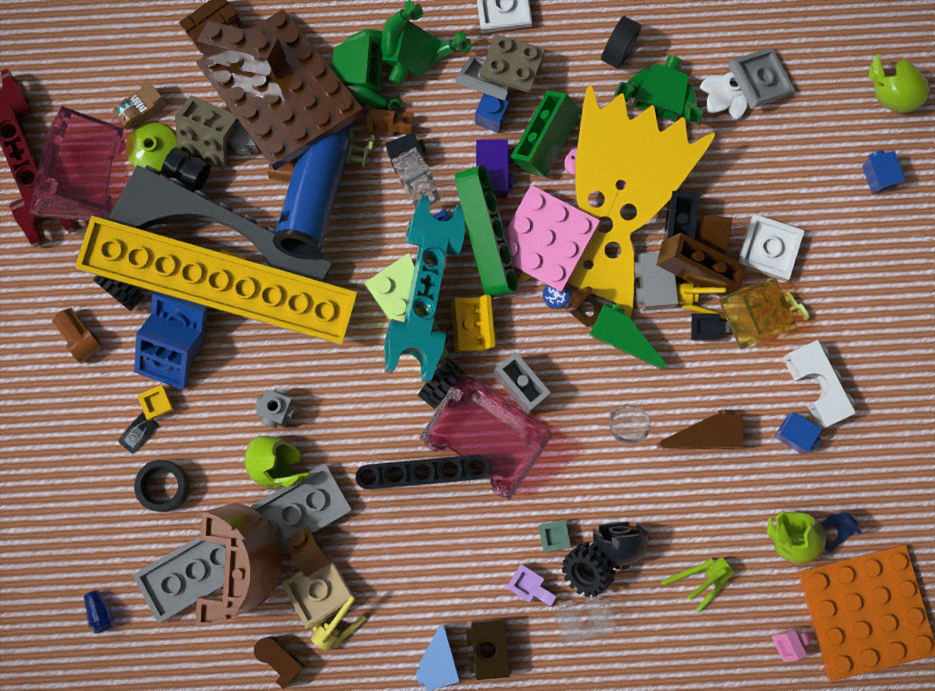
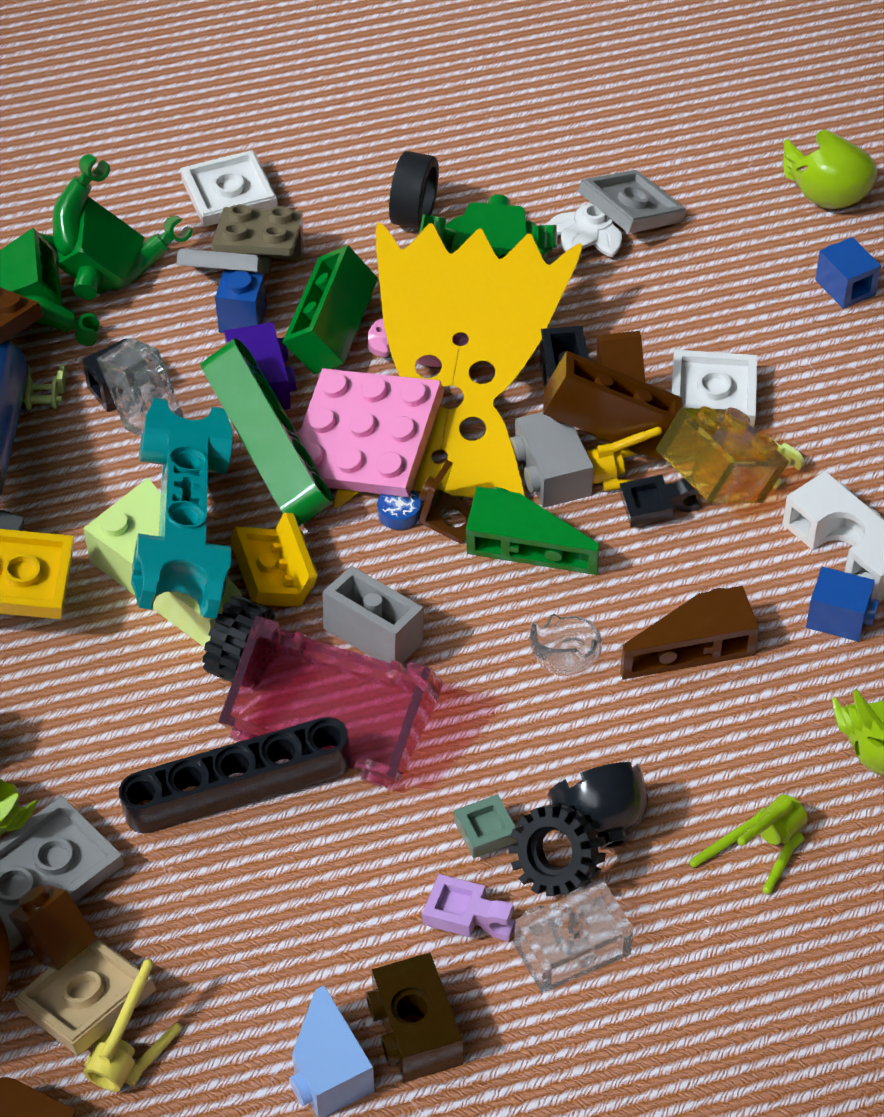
camera: 15 degrees left, 30 degrees down
(385, 123) = (75, 341): dark orange plate -> none

